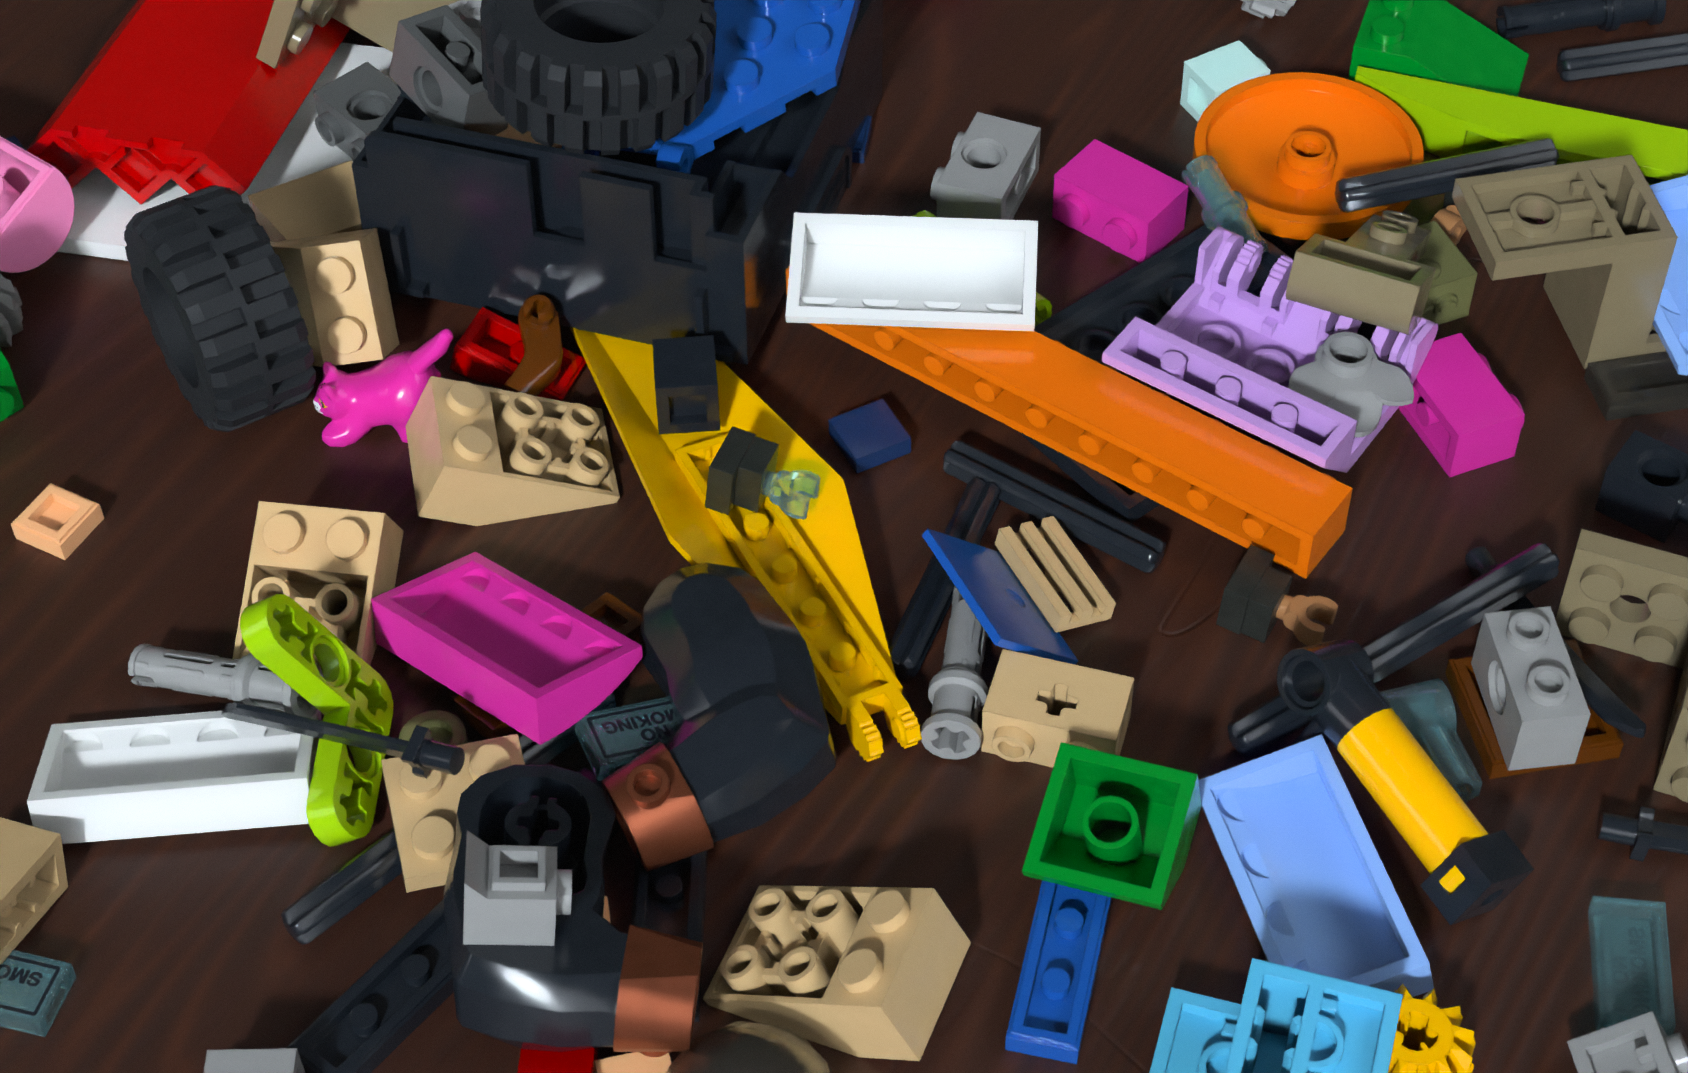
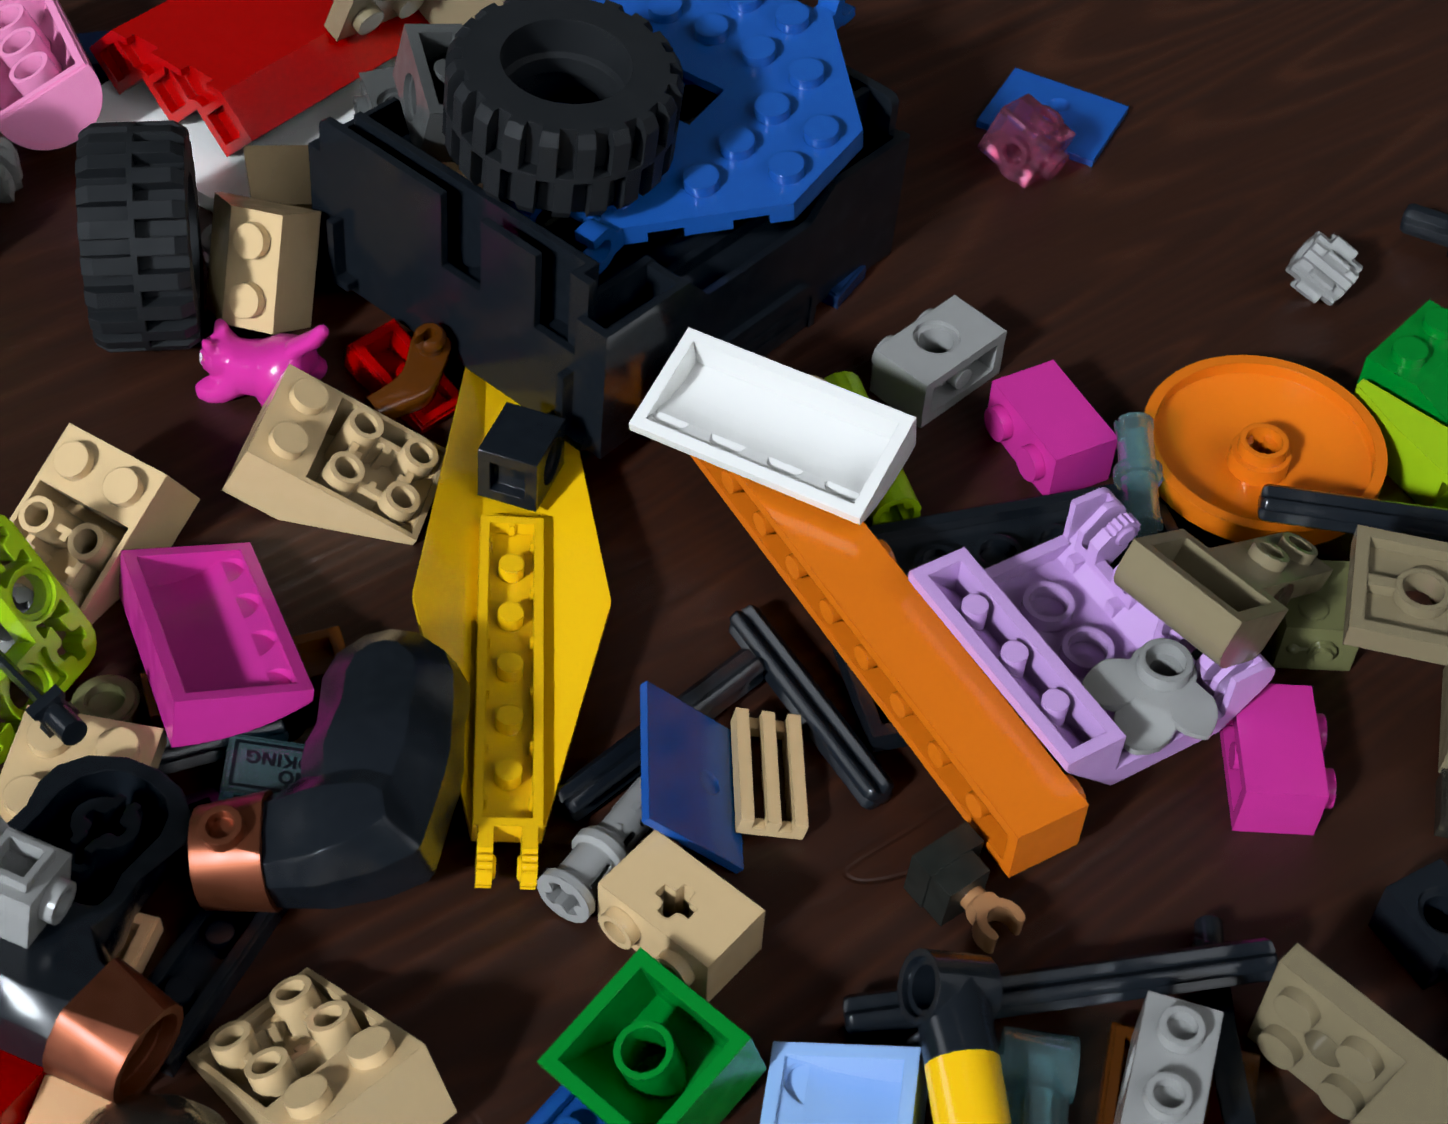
camera: 20 degrees right, 0 degrees up
(746, 474) = (523, 563): pearl dark grey piece -> none
(869, 436) = (677, 570): dark blue tile -> none
(1216, 72) = (1222, 335): light aqua brick -> none

